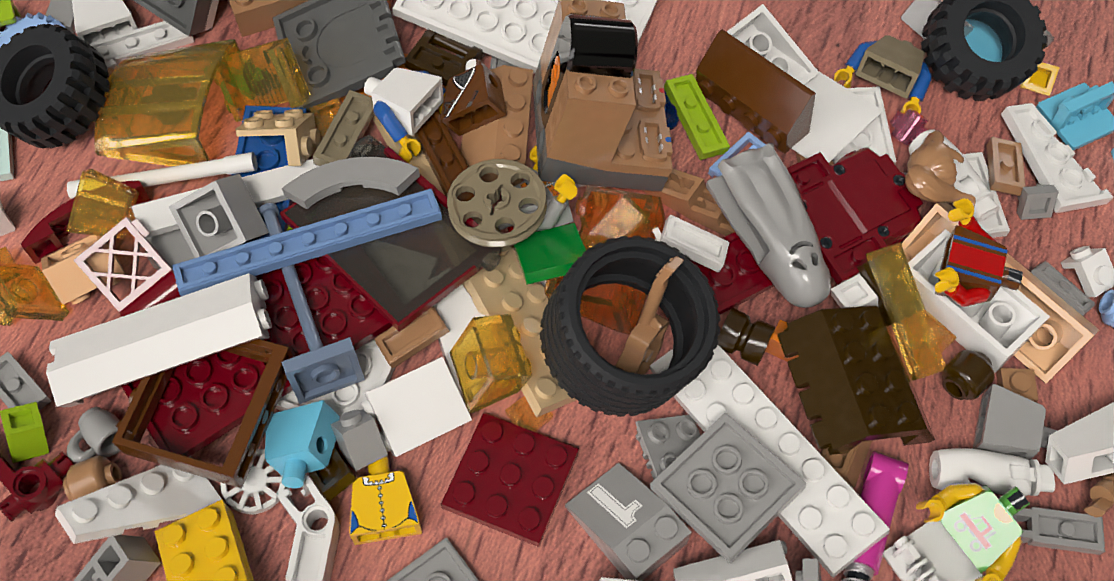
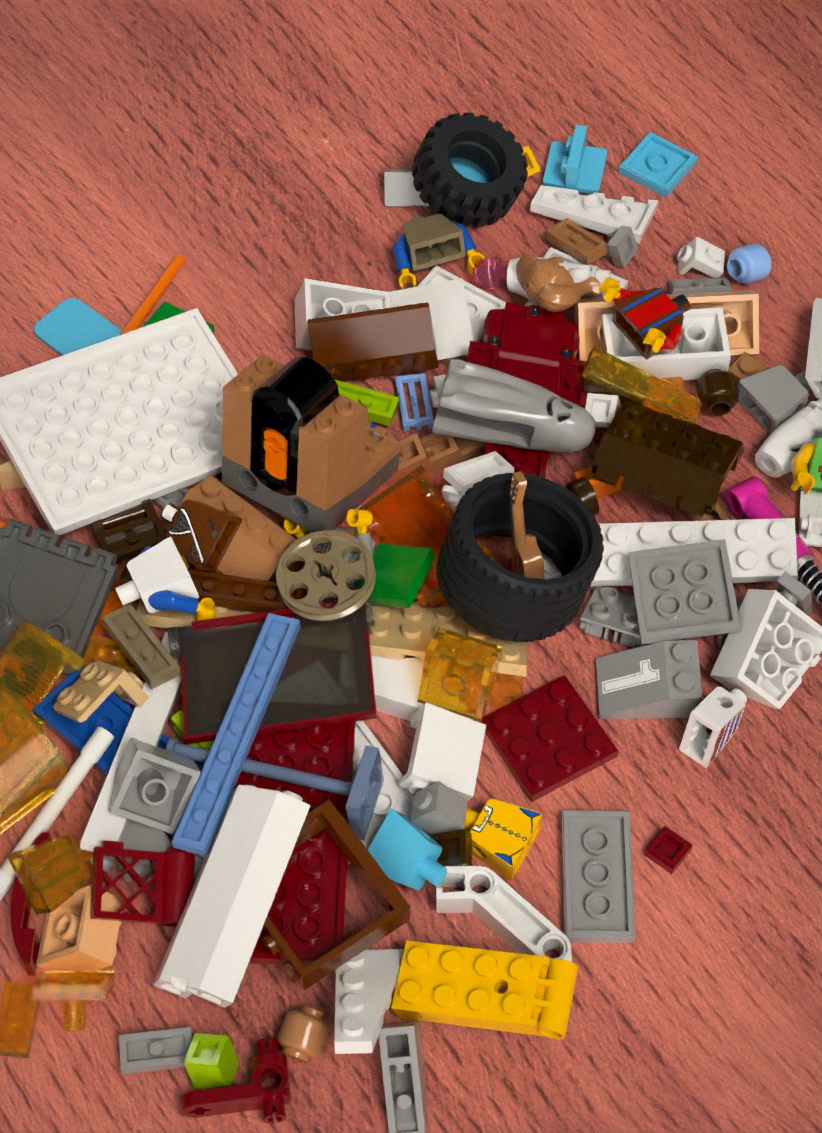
camera: 50 degrees left, 5 degrees down
(98, 431) = (261, 1004): light grey piece -> none
(255, 485) = (407, 927): white wheel -> none
(366, 171) = (188, 674): light grey tile -> none
(416, 336) = (380, 731): medium nougat tile -> none
(621, 220) = (413, 516): clear yellow plate -> none

